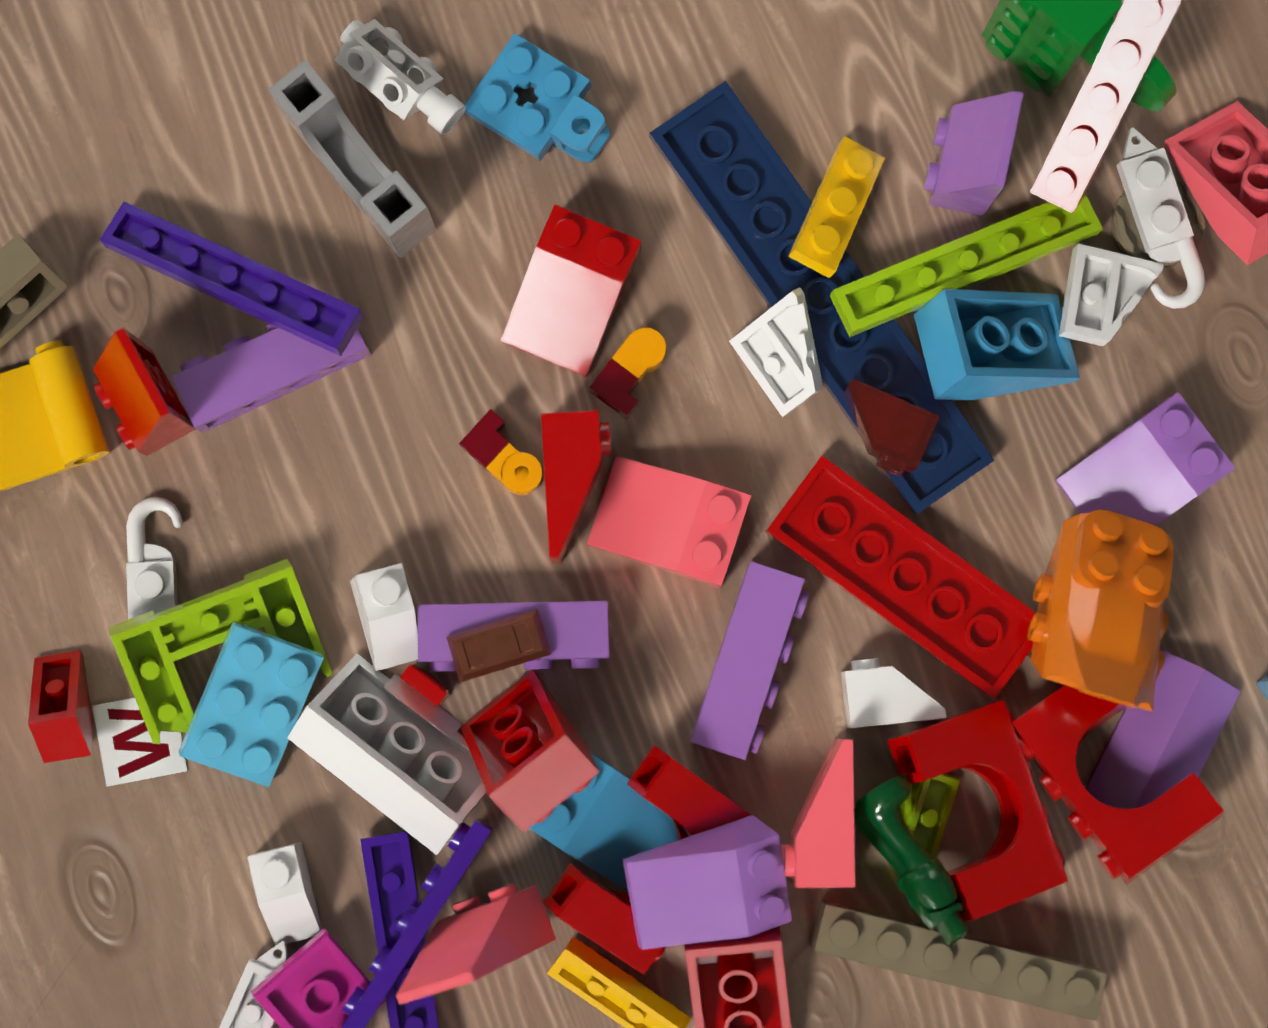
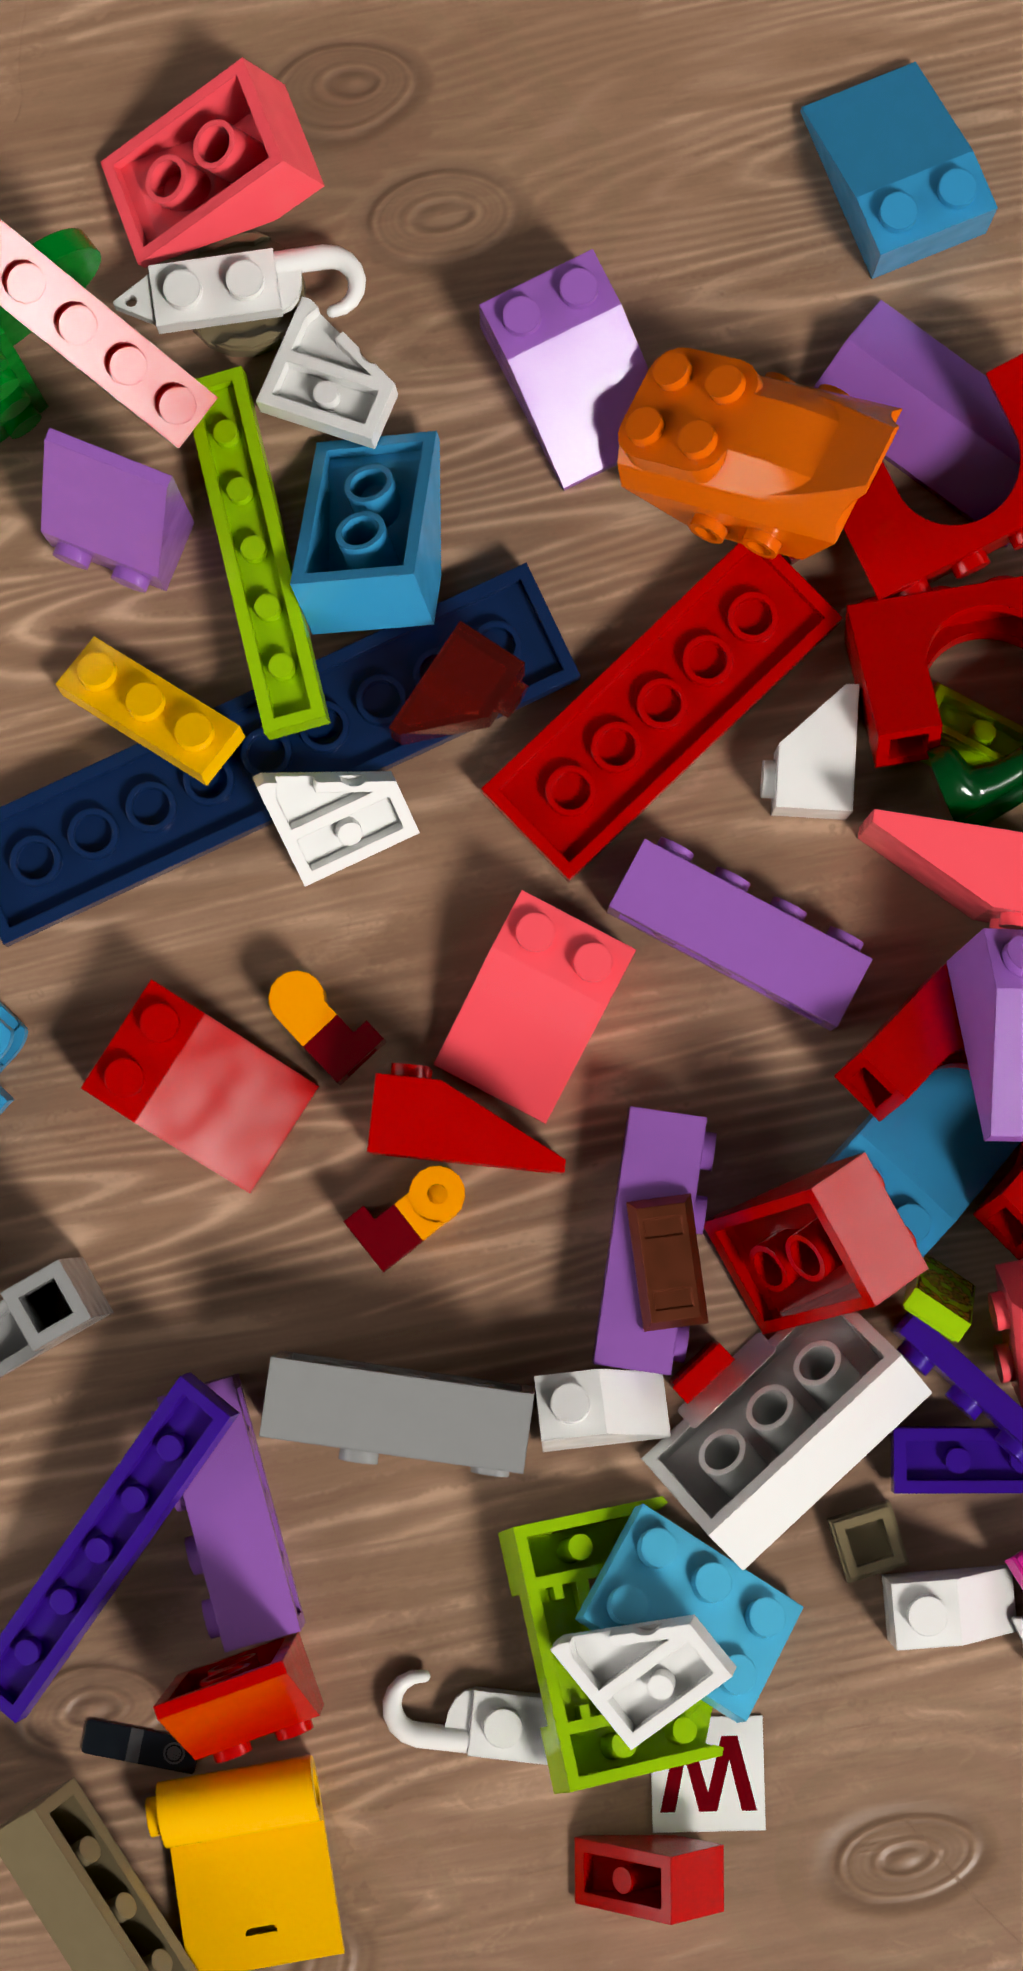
camera: 75 degrees left, 0 degrees up
(96, 327) = (136, 1746): none -> black sticker
(203, 675) = (645, 1671): none -> white wing
(323, 827) = (868, 1541): none -> dark tan tile
(359, 469) = (397, 1413): none -> light grey brick
(505, 848) = (941, 1299): none -> lime tile

